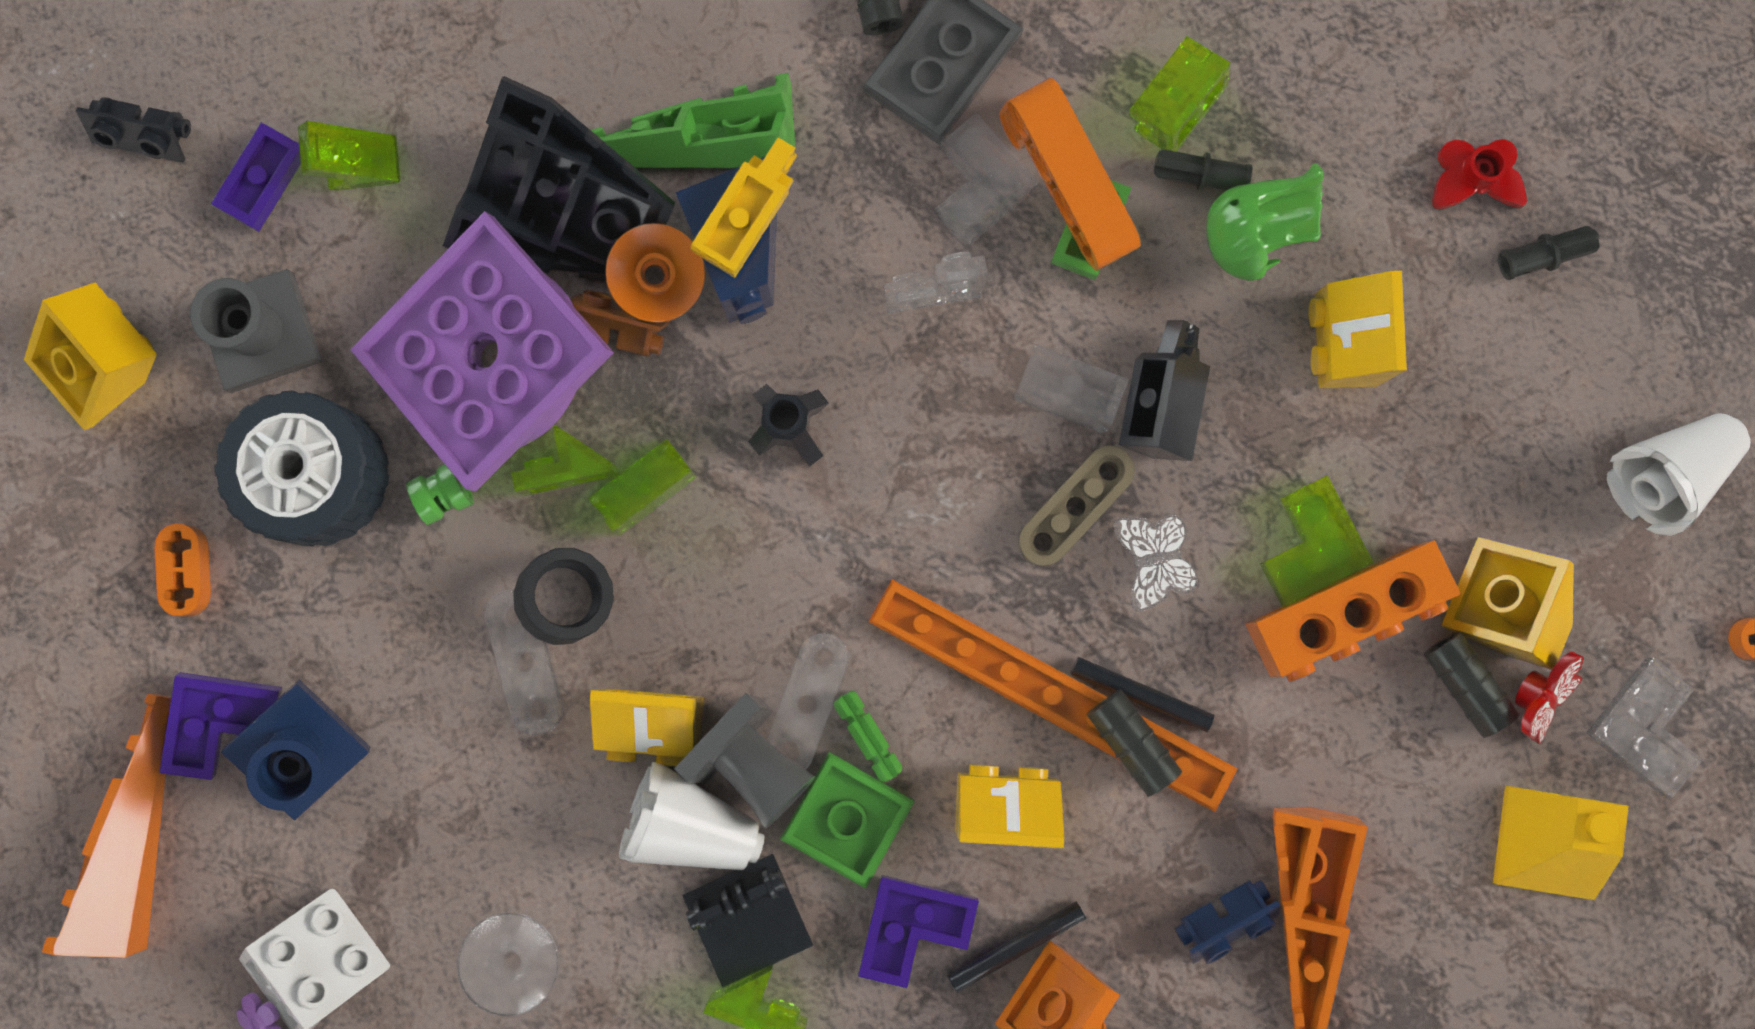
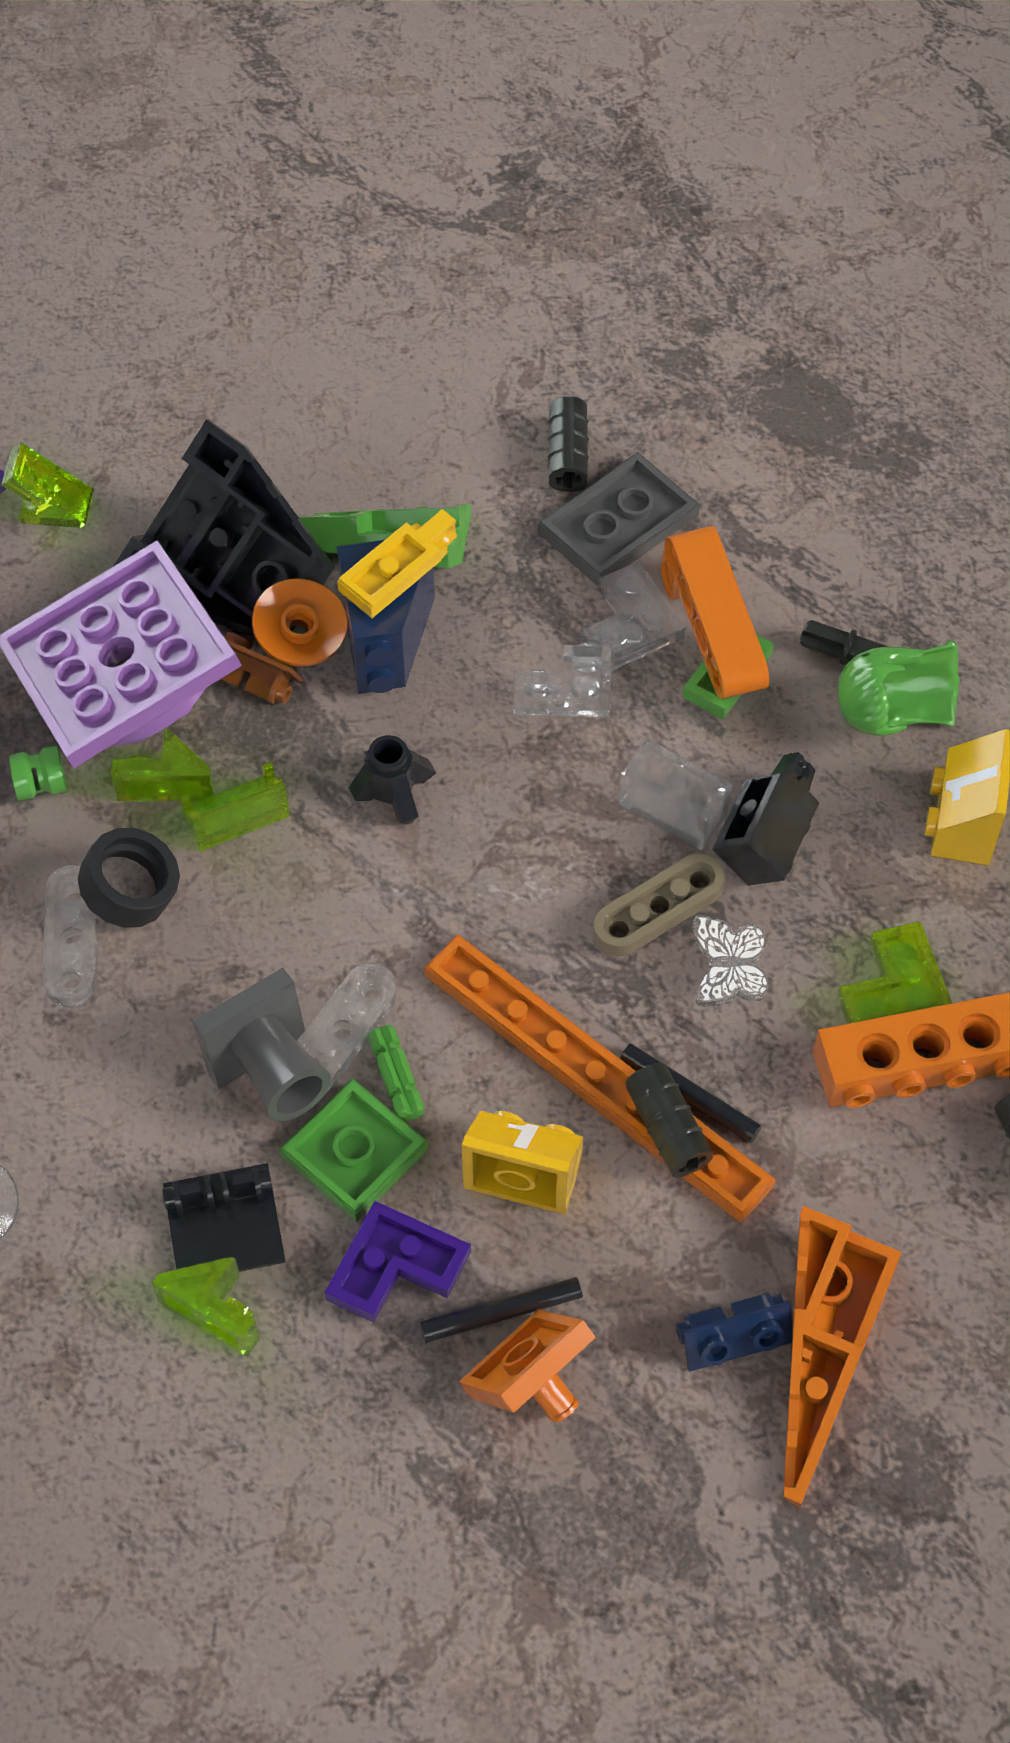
camera: 15 degrees right, 25 degrees down
(645, 724) = (166, 991): yellow slope -> none
(687, 826) = (188, 1107): white cone -> none
(1180, 95) = (838, 580): clear neon green hinge -> none

